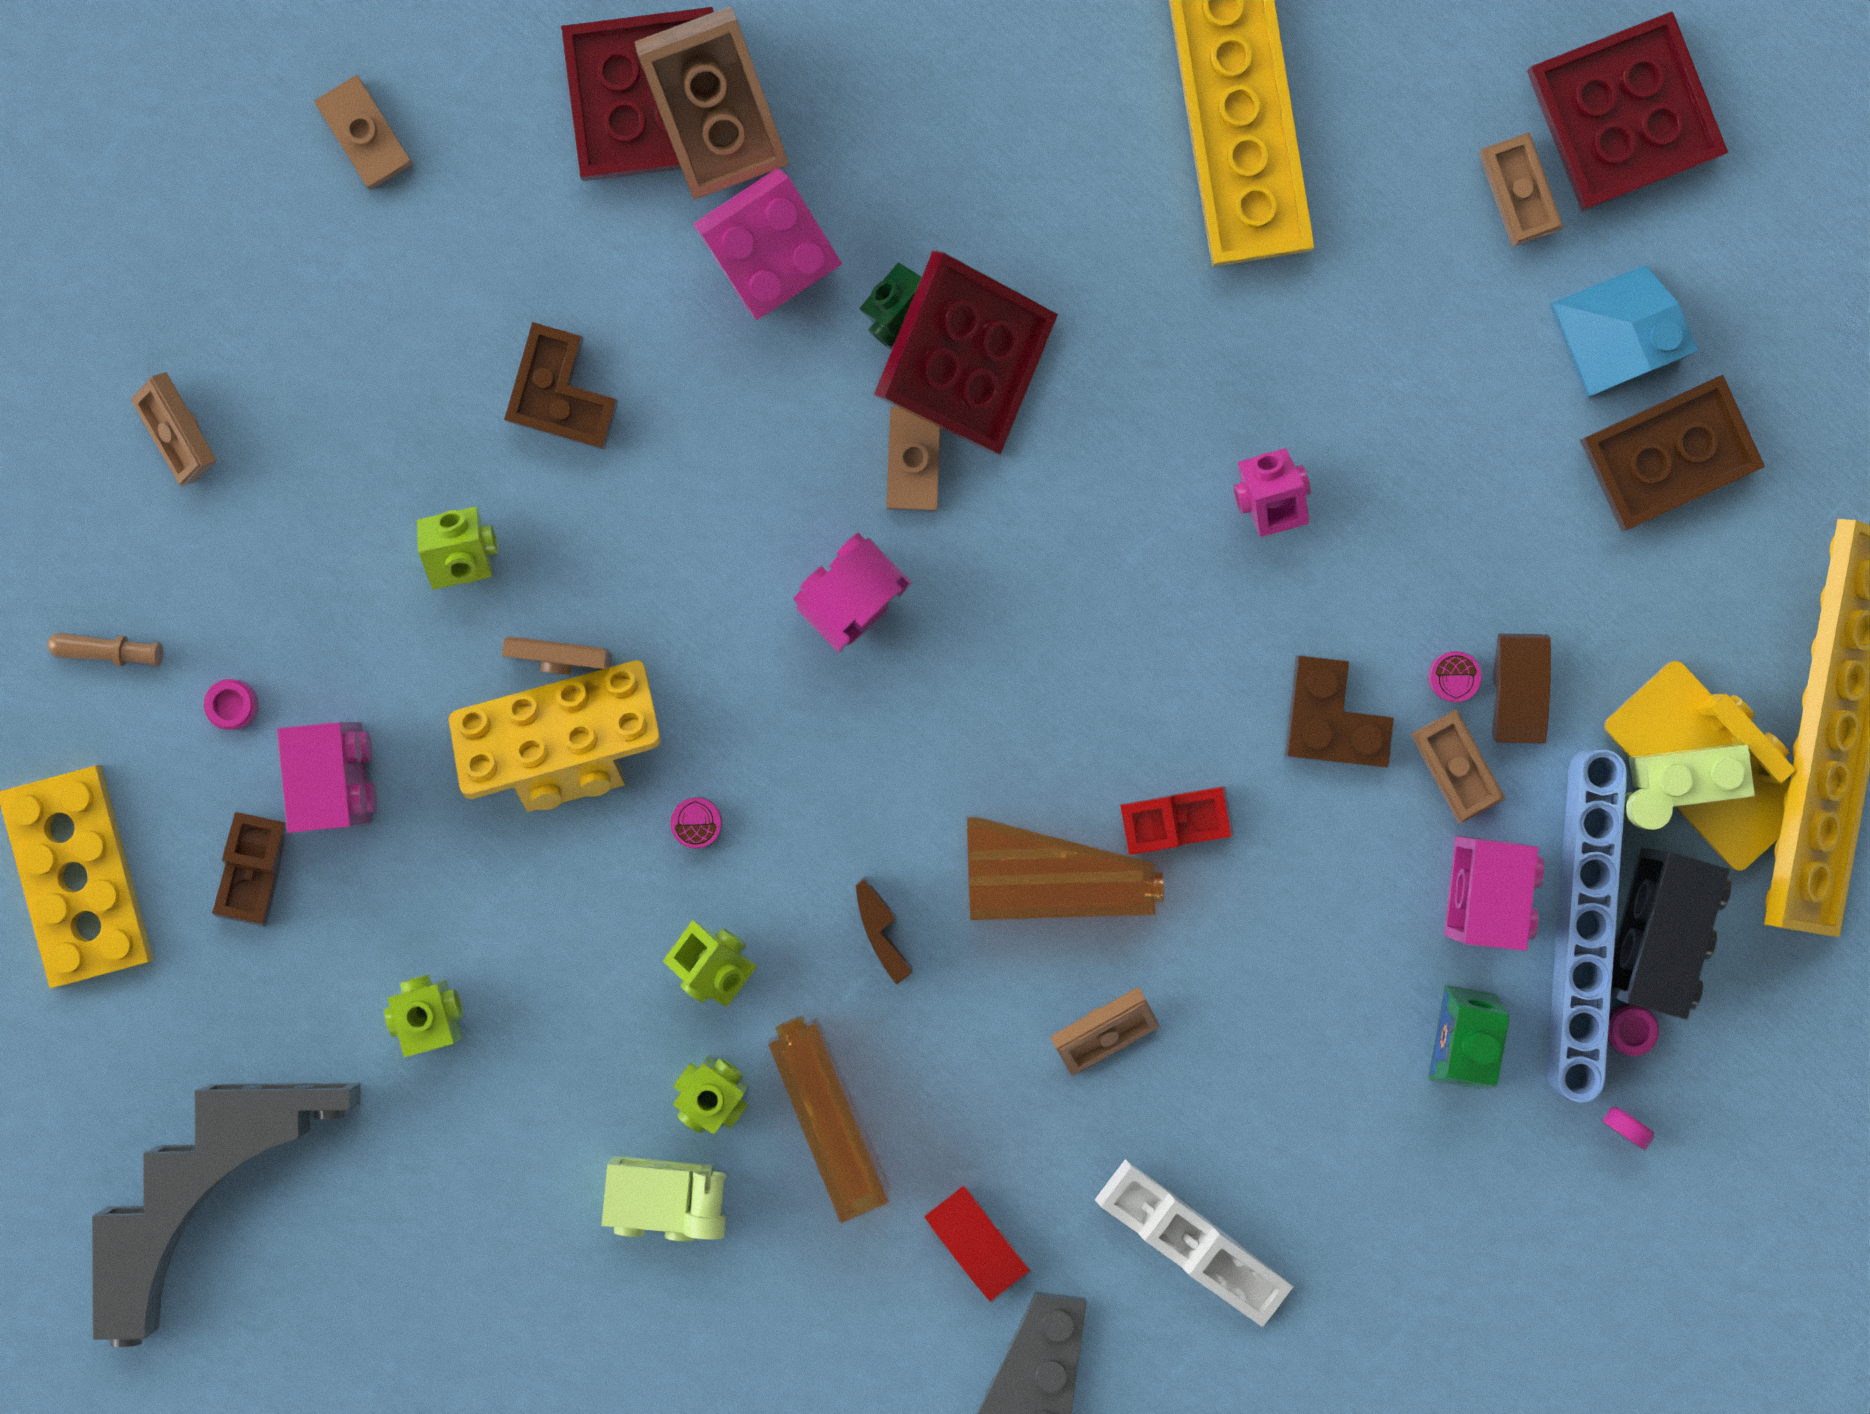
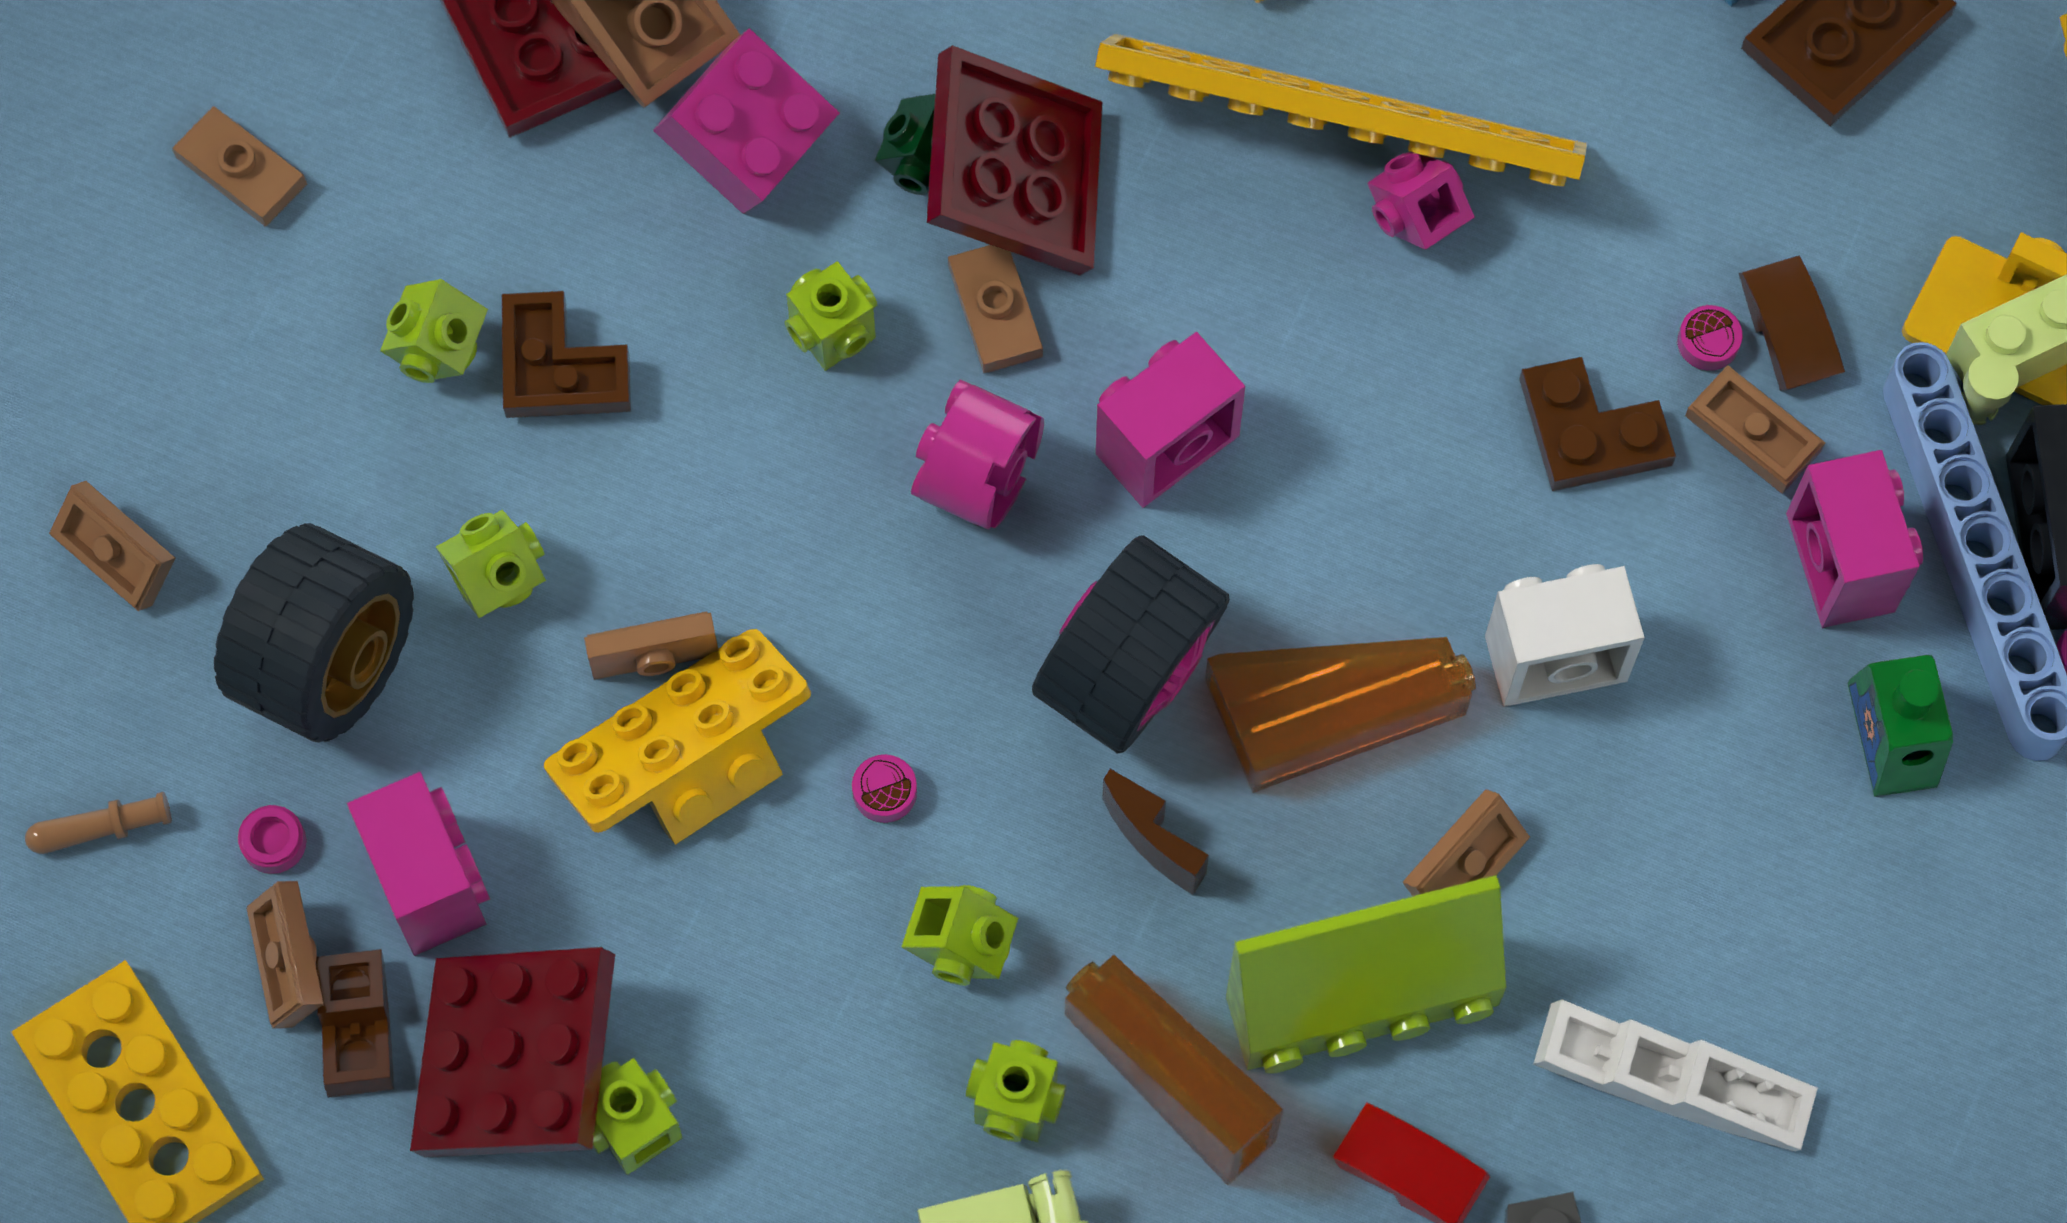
camera: 20 degrees left, 20 degrees down
(212, 804) = (285, 954): none -> medium nougat plate
(297, 570) = (313, 632): none -> black wheel
(353, 944) = (513, 1053): none -> dark red plate
(468, 338) = (433, 331): none -> lime brick
(785, 448) = (831, 314): none -> lime brick
(910, 795) = (1130, 644): none -> black wheel
(994, 1108) = (1368, 975): none -> lime slope
(1008, 612) = (1168, 417): none -> dark pink brick
(1176, 820) = (1452, 598): red slope -> none
(1242, 393) = (1317, 103): none -> yellow plate
(1242, 893) = (1563, 634): none -> white brick

